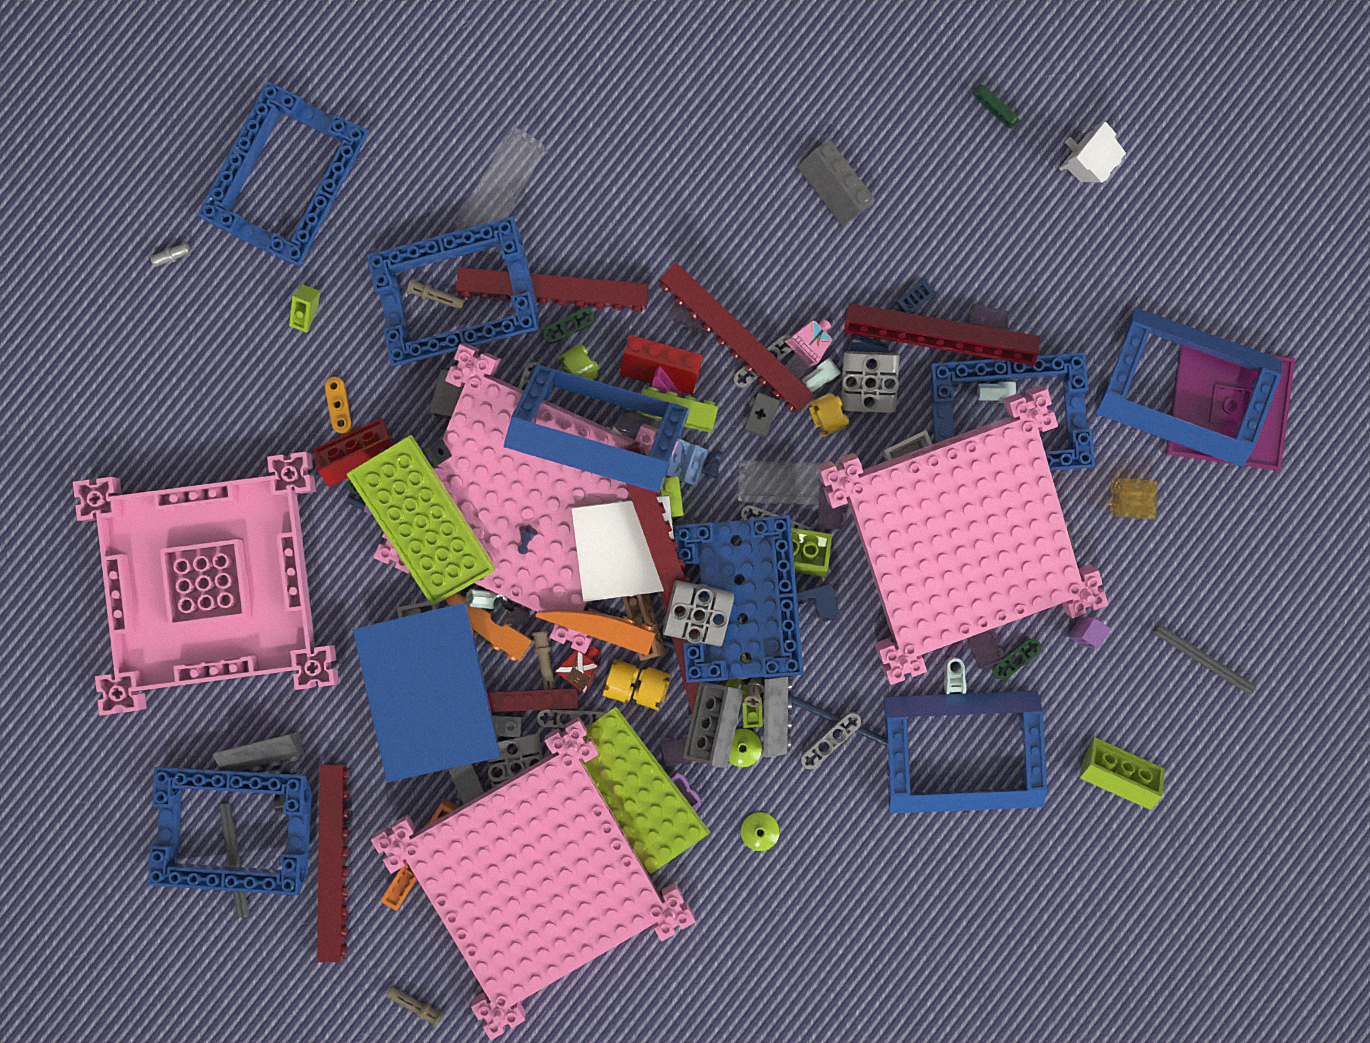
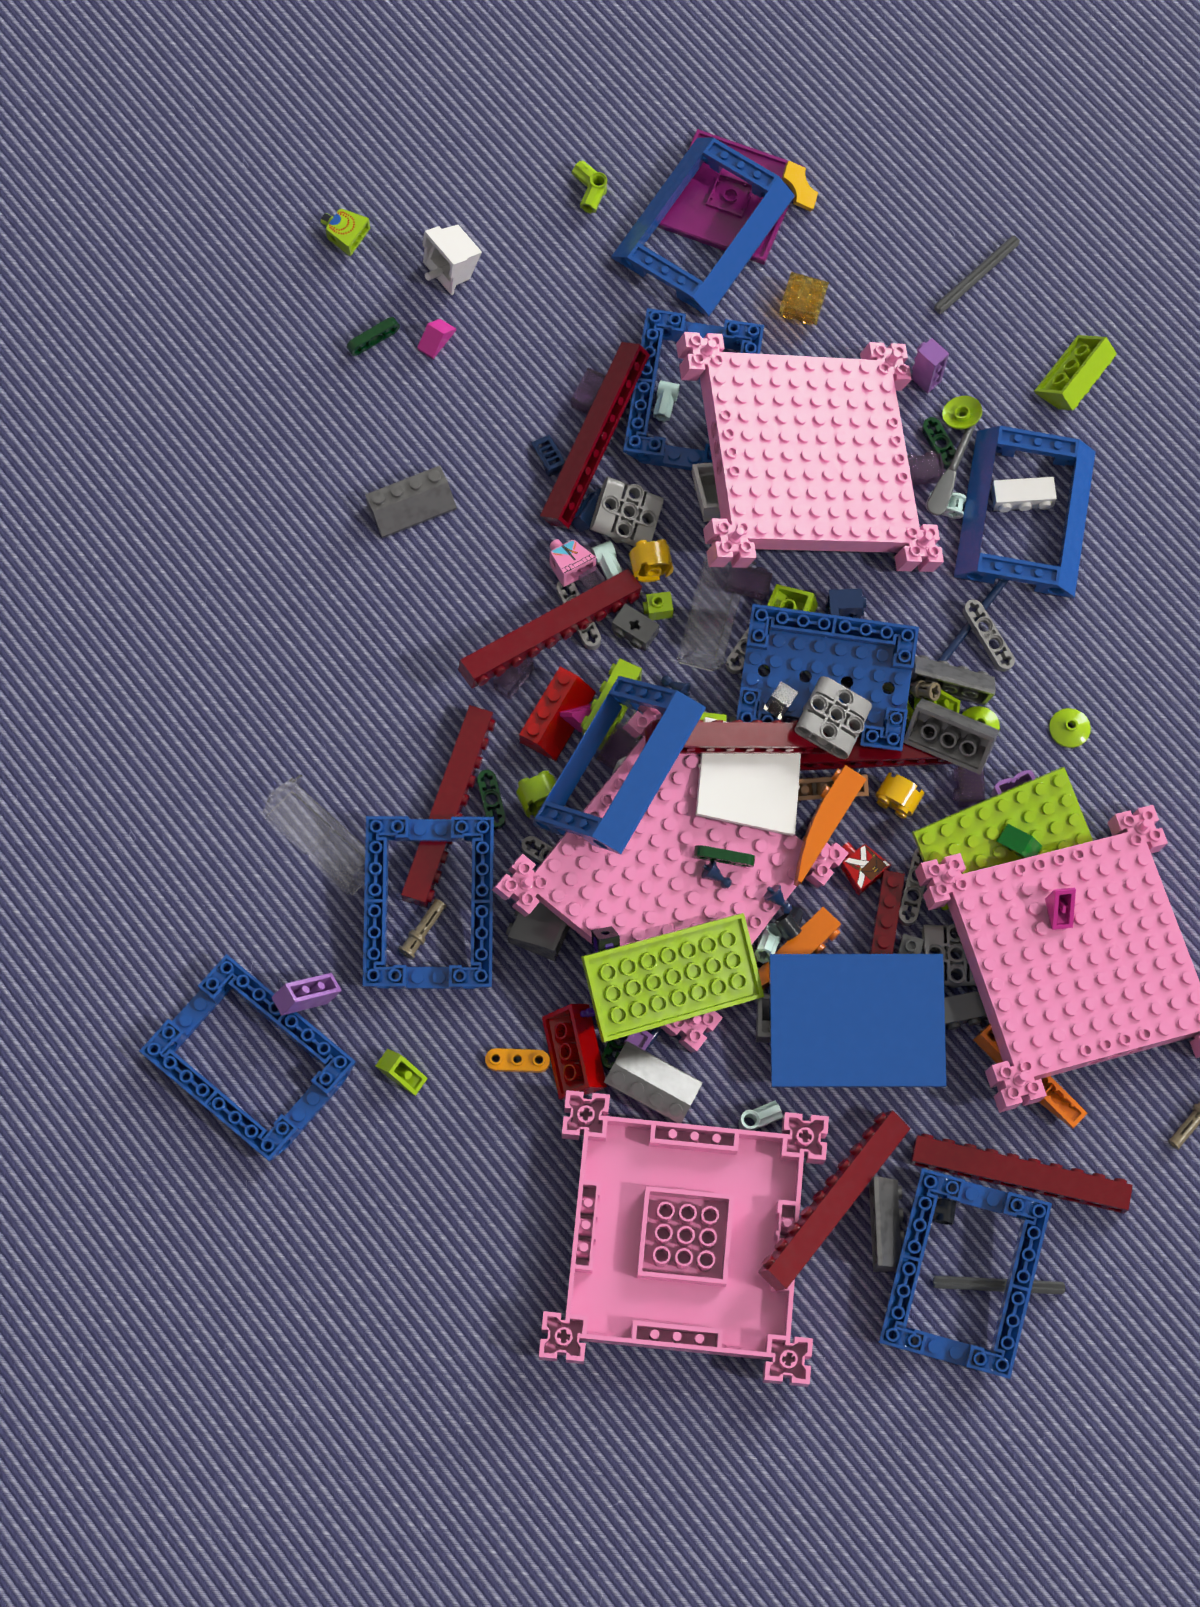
camera: 75 degrees left, 15 degrees down
(170, 254) = (301, 1207): light grey pin -> none
(262, 704) = (833, 1201): none -> dark red brick
(334, 627) = (762, 1116): none -> light aqua piece
(337, 526) = (653, 1082): none -> flat silver slope
(346, 208) = (306, 994): none -> medium lavender brick
(523, 594) = (775, 895): none -> dark blue piece
(543, 542) = (724, 856): none -> dark green beam
(543, 649) = (836, 901): dark tan pin -> none
(564, 856) = (1061, 907): none -> dark pink slope
(619, 681) = (885, 825): yellow brick -> none
(628, 805) = (1019, 842): none -> green slope
(705, 561) = (780, 700): none -> clear smoke brick
(787, 431) = (658, 606): none -> lime brick
(962, 670) = (943, 490): none -> dark grey piece
(981, 747) = (1023, 494): none -> white brick
(1010, 164) = (435, 337): none -> dark pink slope
(1057, 667) = (962, 412): none -> lime dish
(1100, 52) = (346, 229): none -> lime torso
(1214, 267) = (589, 178): none -> lime piece
(1264, 463) = (795, 178): none -> yellow tile

